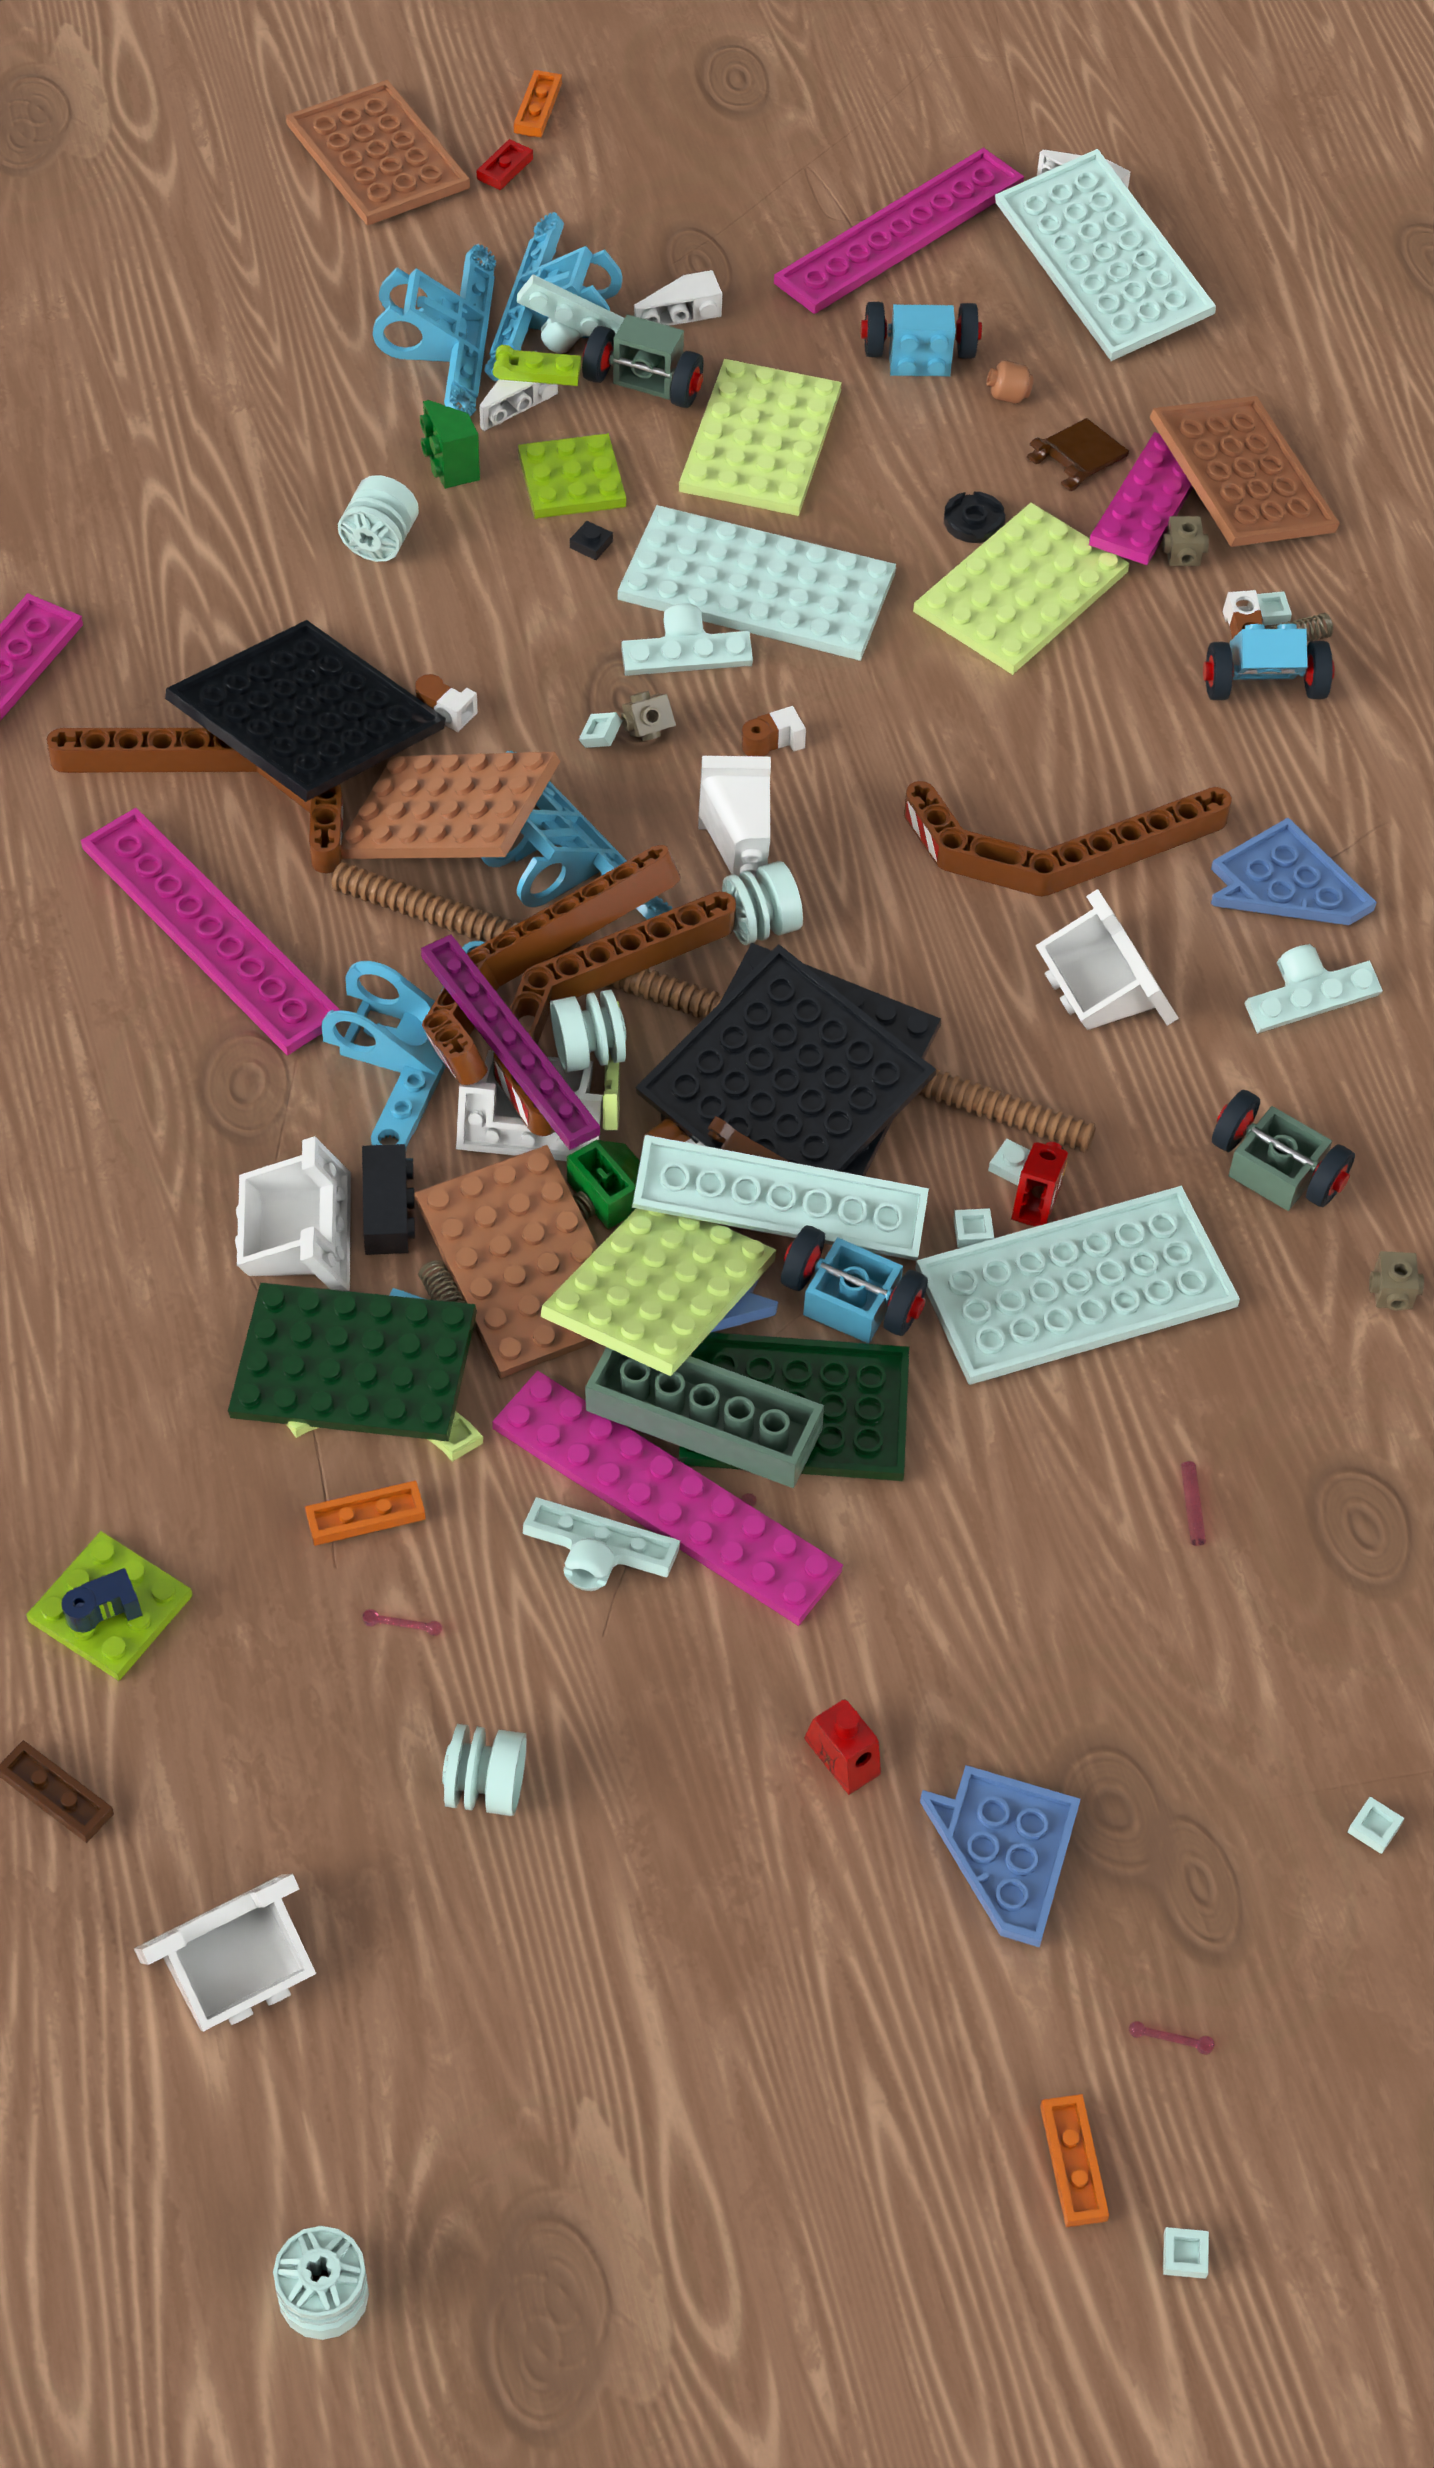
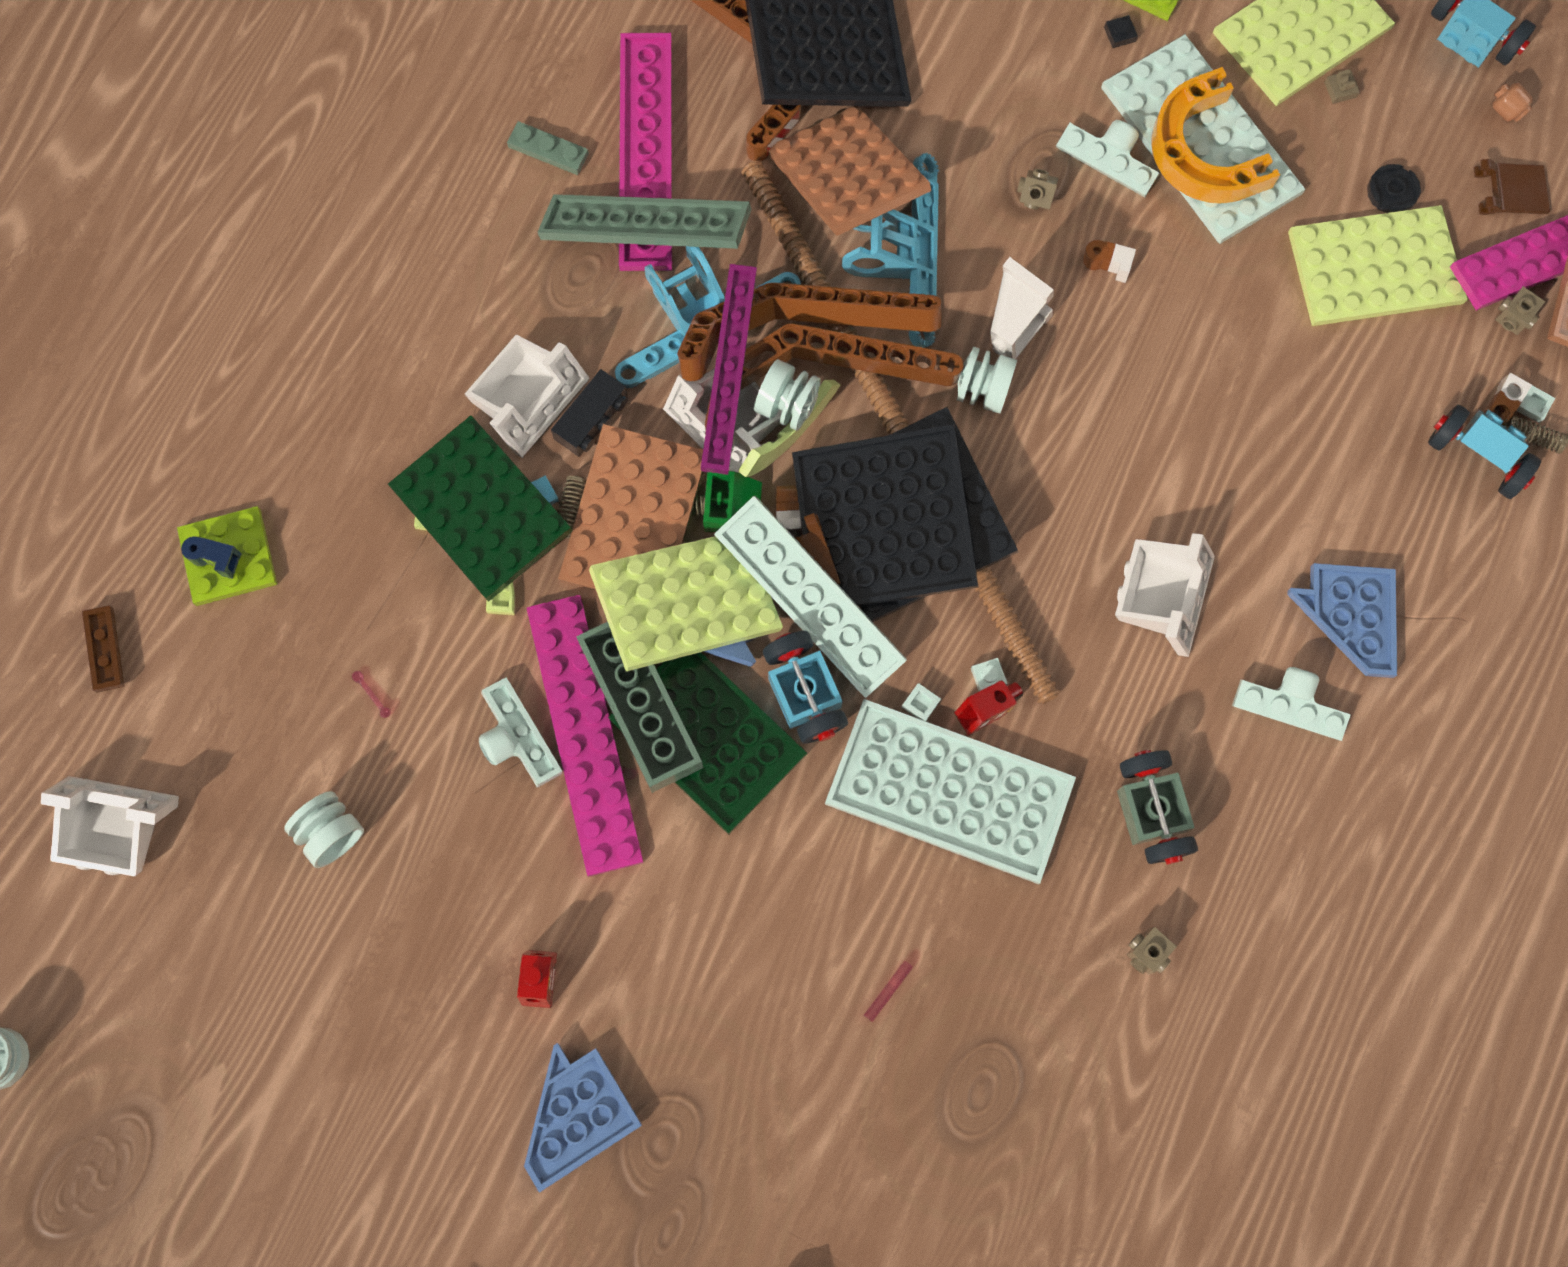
camera: 40 degrees right, 20 degrees up
(98, 994) = (547, 148): none -> sand green plate
(282, 979) = (645, 221): none -> sand green plate
(365, 1513) = (406, 609): orange plate -> none
(453, 705) = (922, 95): white leg -> none
(600, 730) = (1001, 178): light aqua plate -> none
(766, 608) = (1187, 171): none -> light orange piece
(844, 462) = (1342, 86): none -> dark tan tile
(1067, 863) = (1343, 524): dark orange beam -> none

